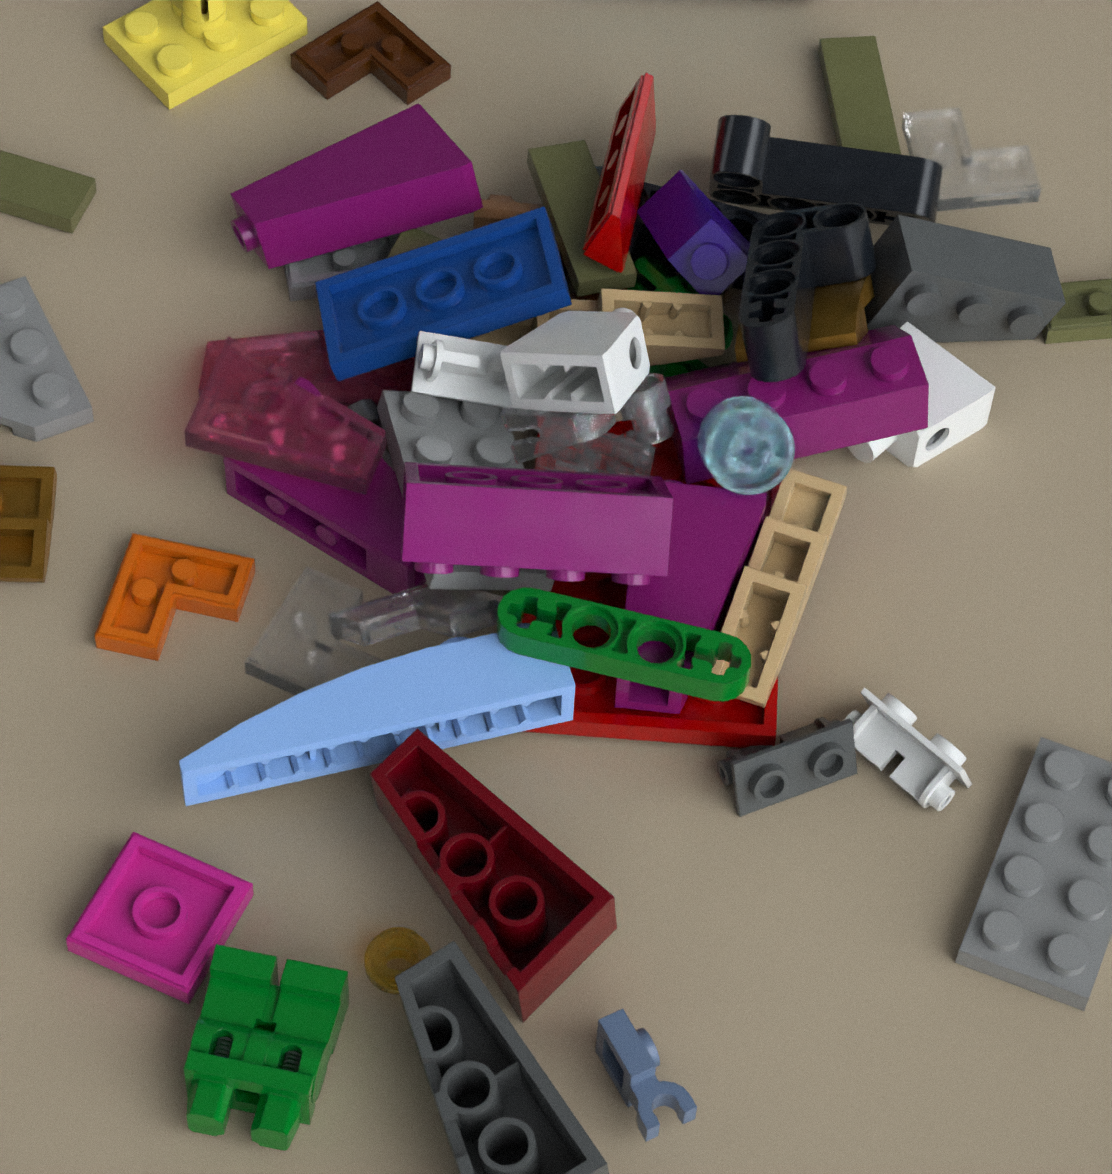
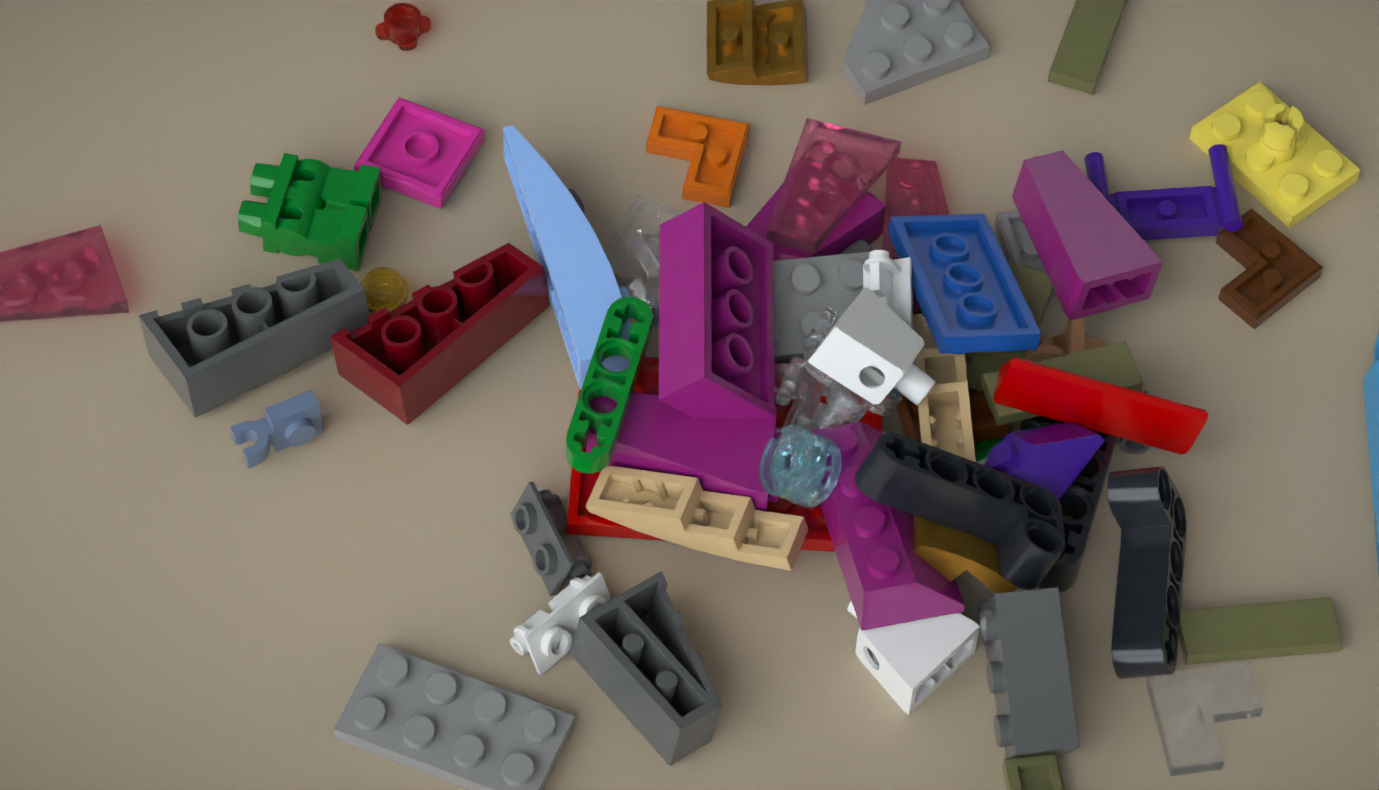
camera: 90 degrees right, 0 degrees up
(296, 109) = (1176, 211): none -> dark purple plate
(984, 648) = (648, 669): none -> dark grey wedge

